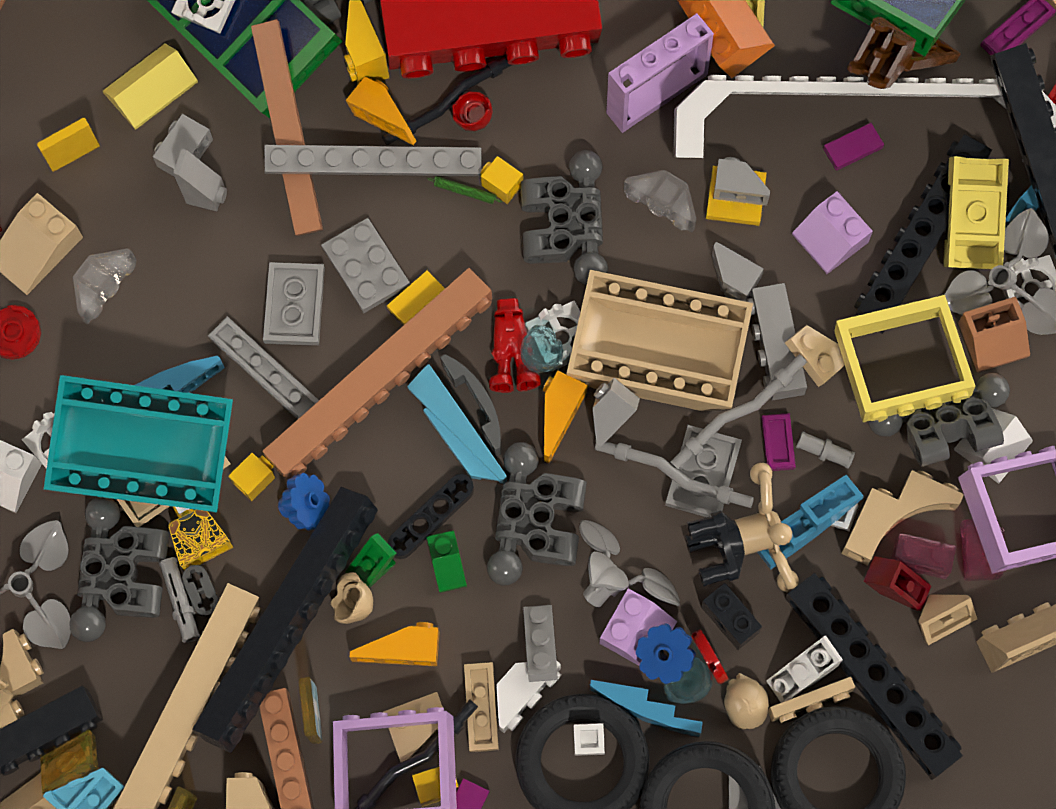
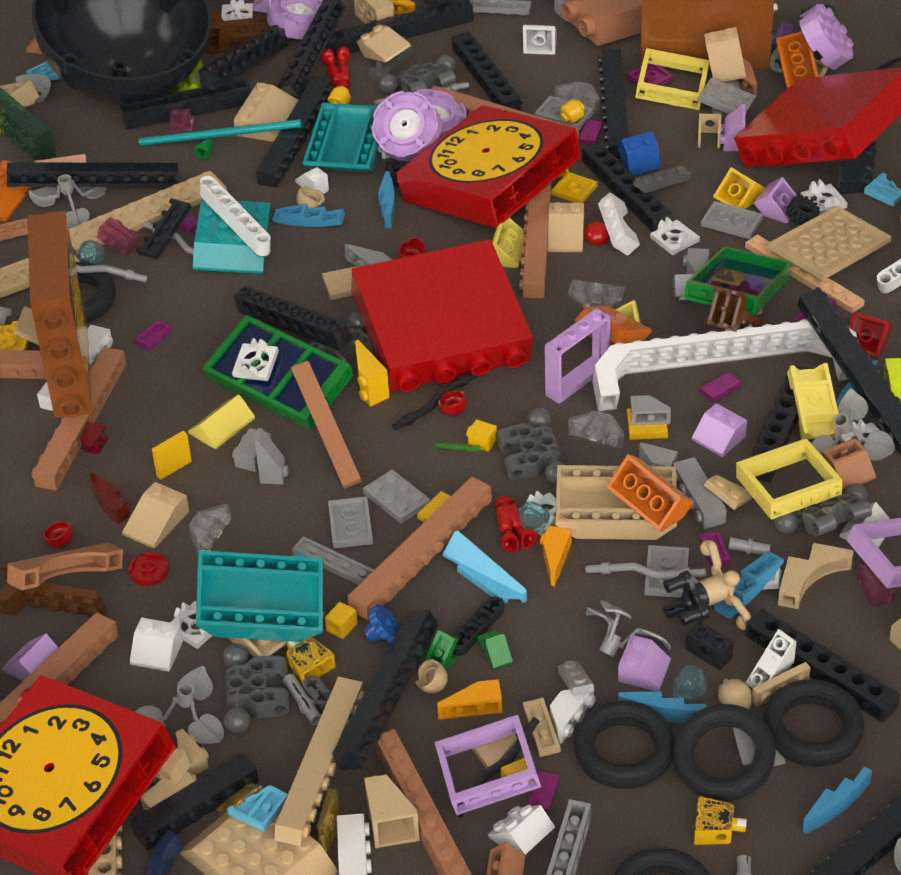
camera: 10 degrees left, 30 degrees down
(310, 710) = (416, 741): clear yellow tile -> none
(372, 160) = (389, 434): light grey plate -> none
(374, 105) = (388, 407): light orange slope -> none
(460, 374) = (493, 550): dark grey slope -> none
(559, 546) = (548, 612): dark grey connector -> none
(589, 739) = (626, 719): white plate -> none
(612, 409) = (592, 538): light grey slope -> none
(654, 660) = (668, 666): blue plant -> none
(703, 354) = (649, 493): none -> orange slope
(709, 656) = (696, 657): red tile -> none
(781, 378) = (707, 504): light grey bar -> none
(897, 582) = (822, 609): dark red slope -> none
(924, 555) = (835, 591): clear pink brick -> none
(945, 615) = (863, 625): tan slope -> none

